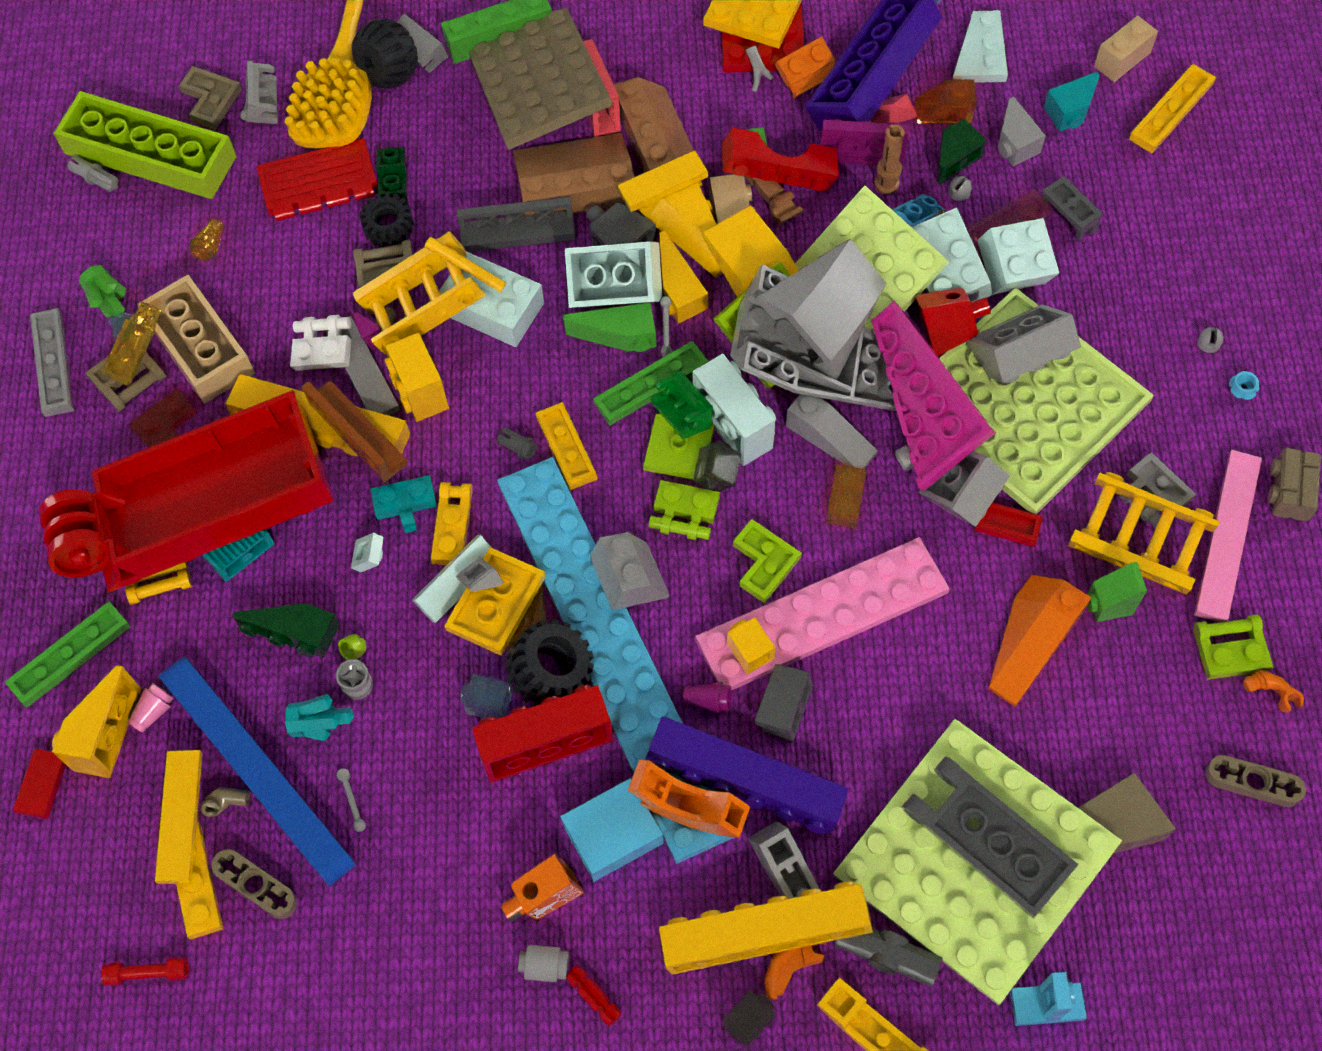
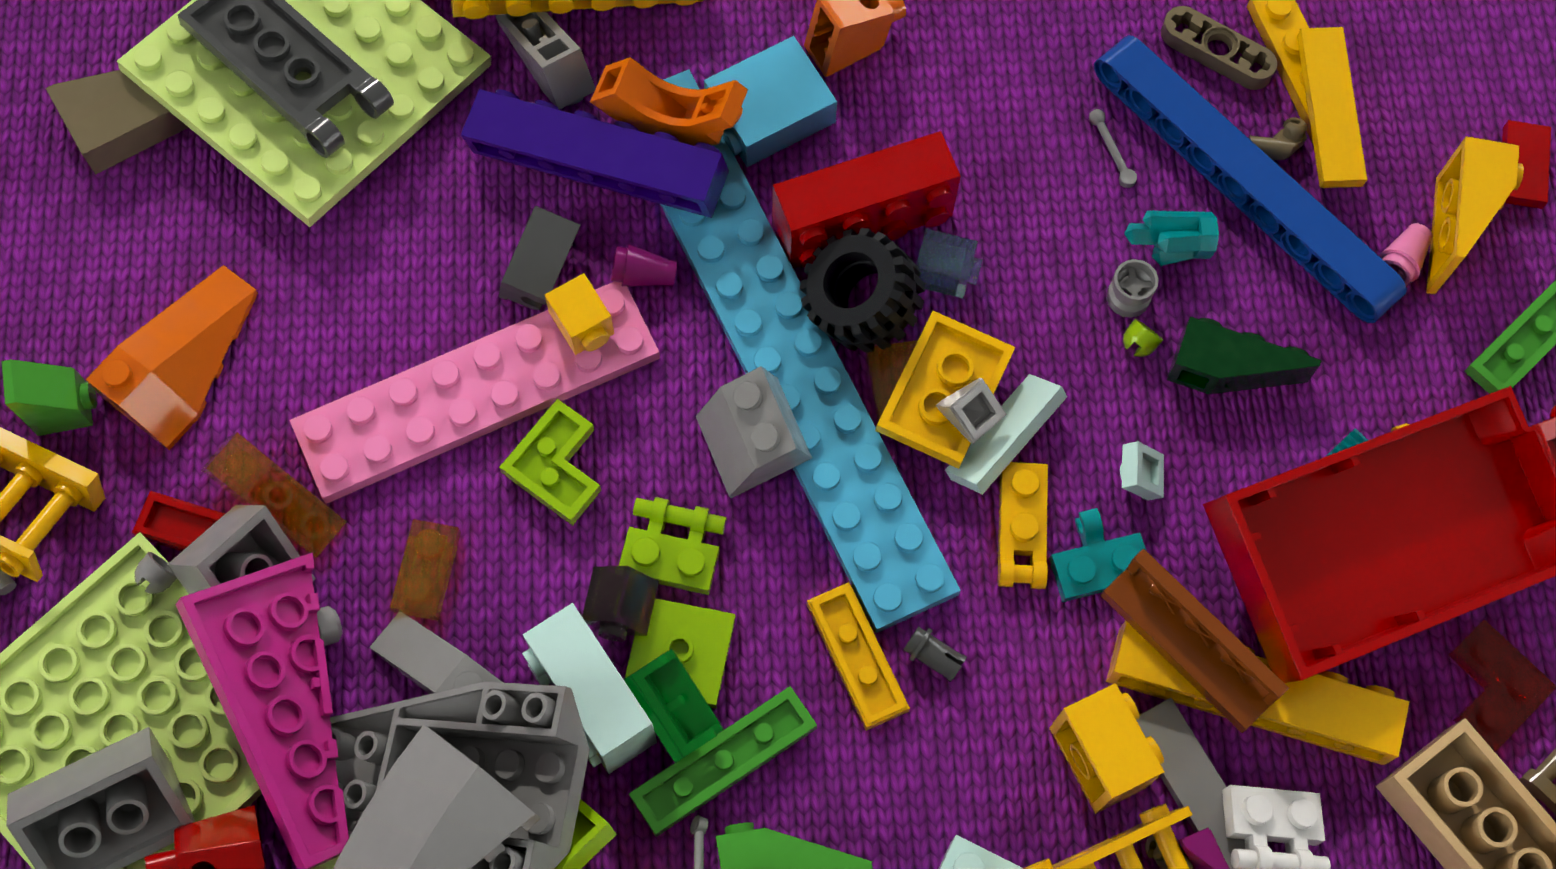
camera: 175 degrees right, 5 degrees up
(957, 540) = (259, 481): none -> slope
(1019, 477) = (156, 572): none -> light grey hinge

